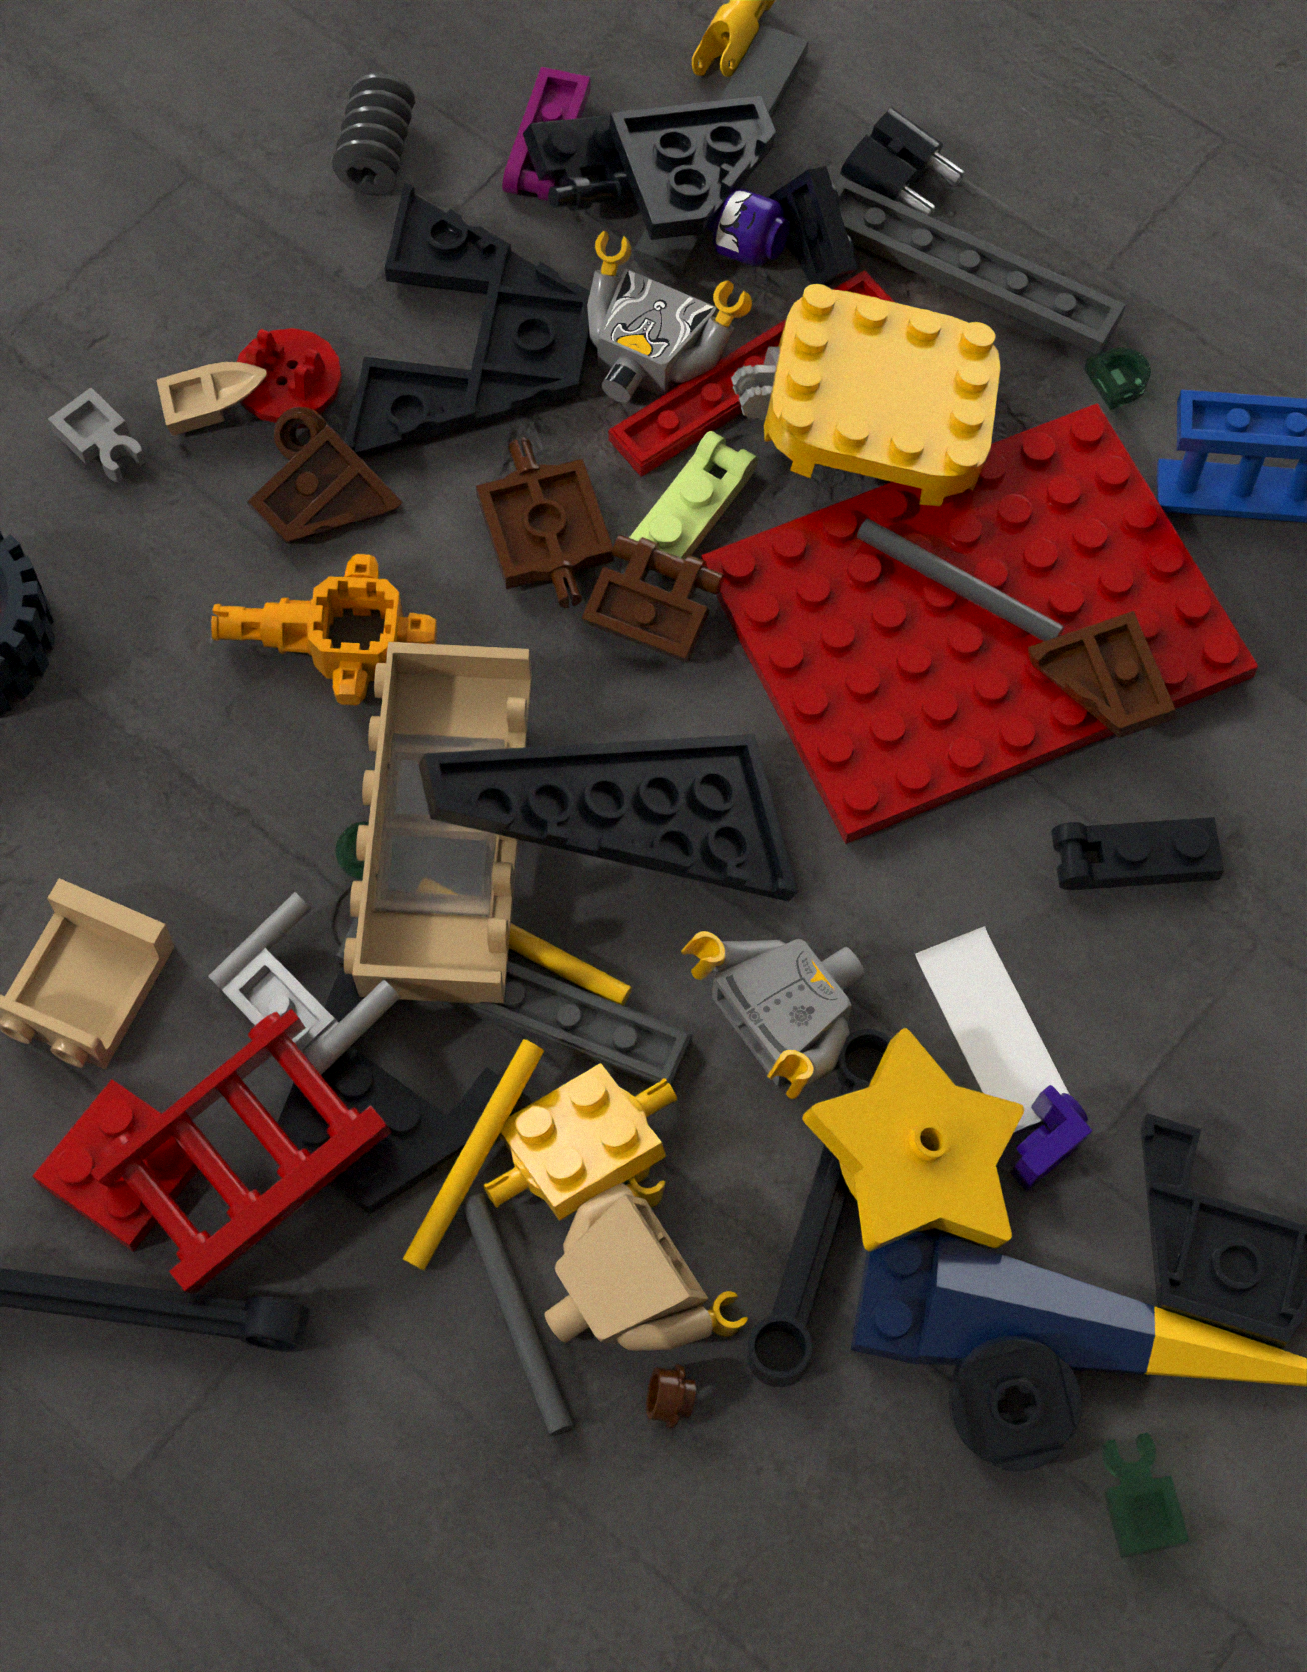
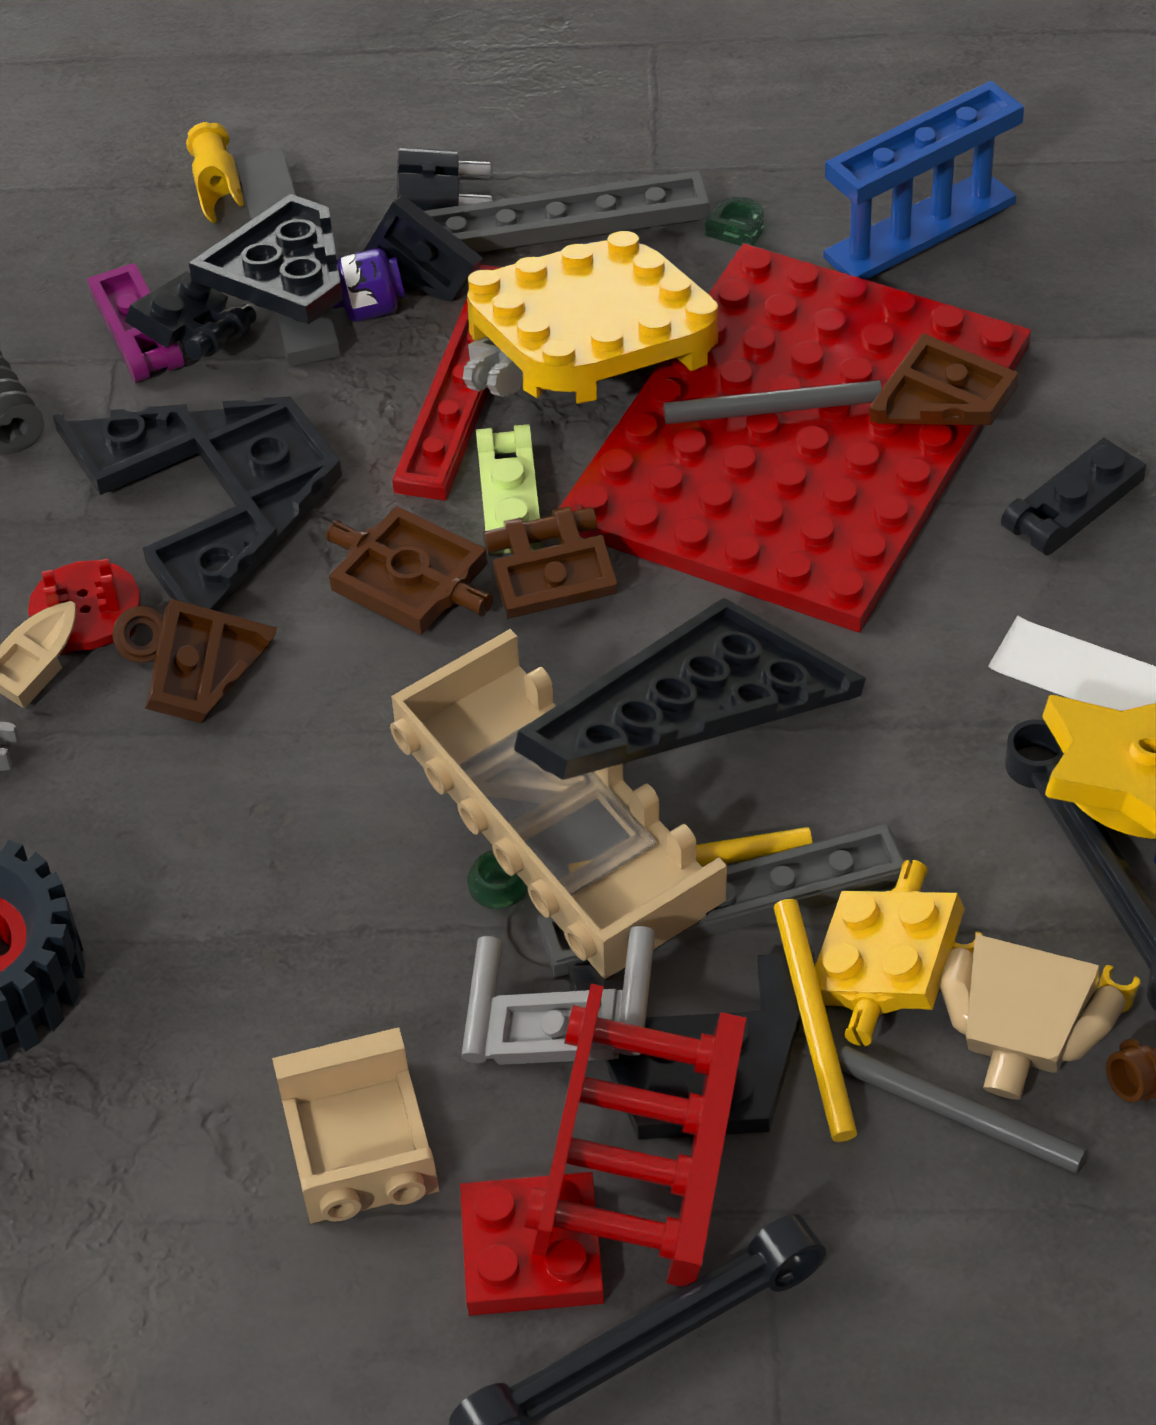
camera: 35 degrees left, 15 degrees down
(306, 624) = (289, 757): light orange piece -> none
(651, 331) = (362, 393): light grey torso -> none
(781, 1002) = (936, 753): light grey torso -> none

